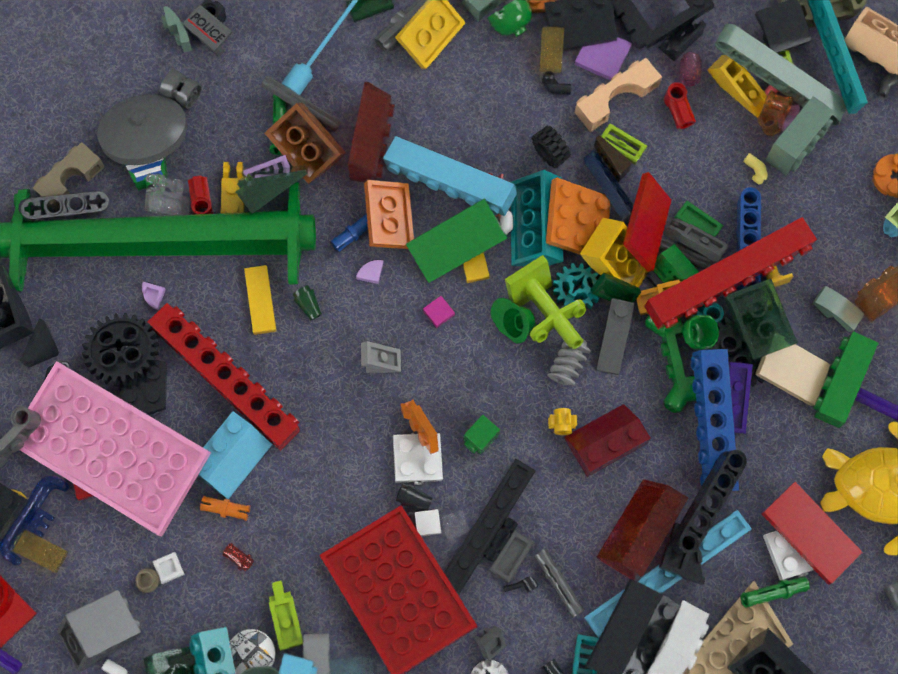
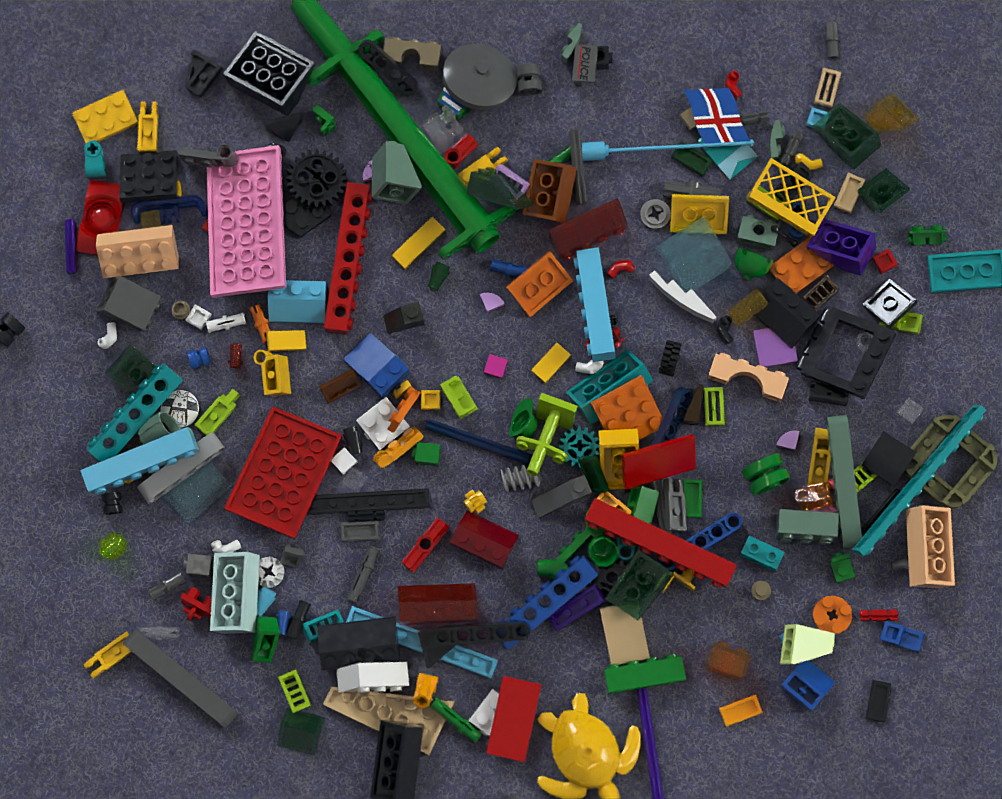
camera: 65 degrees right, 5 degrees up
(52, 580) = (137, 251): none -> light nougat brick
(61, 301) = (321, 117): none -> green bracket
(175, 271) = (394, 174): none -> sand green slope
(203, 527) = (239, 319): none -> white pin
(212, 596) = (198, 358): none -> blue wheel
(262, 494) = (286, 340): none -> yellow tile
(288, 528) = (274, 373): none -> yellow hinge
(326, 363) = (404, 318): none -> pearl dark grey slope
(348, 473) = (340, 386): none -> reddish brown plate
(354, 422) = (377, 365): none -> blue slope
(380, 358) = (433, 350): light grey slope -> none
(394, 62) = (658, 206): none -> light grey gear
(397, 414) = (402, 390): none -> yellow tile
(426, 131) = (620, 266): none -> red arm
(427, 395) = (430, 399): none -> yellow tile
(444, 367) = (458, 397): none -> lime hinge
(454, 458) = (398, 447): none -> light orange hinge
(456, 240) = (550, 342): green tile -> none
(467, 61) = (694, 255): none -> clear light blue plate
(503, 378) = (478, 441): none -> dark blue axle
(506, 96) = (687, 301): none -> white slope
(528, 582) = (349, 554): black hand -> none
(569, 485) = (433, 535): none -> red piece
(680, 107) = (770, 428): red piece -> none
(690, 69) = (807, 415): clear pink brick -> none
(701, 102) = (788, 440): none -> lavender tile
(722, 599) = (424, 690): none -> light orange piece
(726, 138) = (765, 474): none -> green wheel
(759, 168) = (765, 515): light yellow arm -> none
(797, 194) = (762, 554): none -> teal brick
(824, 66) = (882, 508): none -> black axle
(830, 220) = (761, 590): none -> dark tan plate
(837, 306) = (695, 637): sand green slope -> none
(855, 137) = (841, 567): none -> green bracket

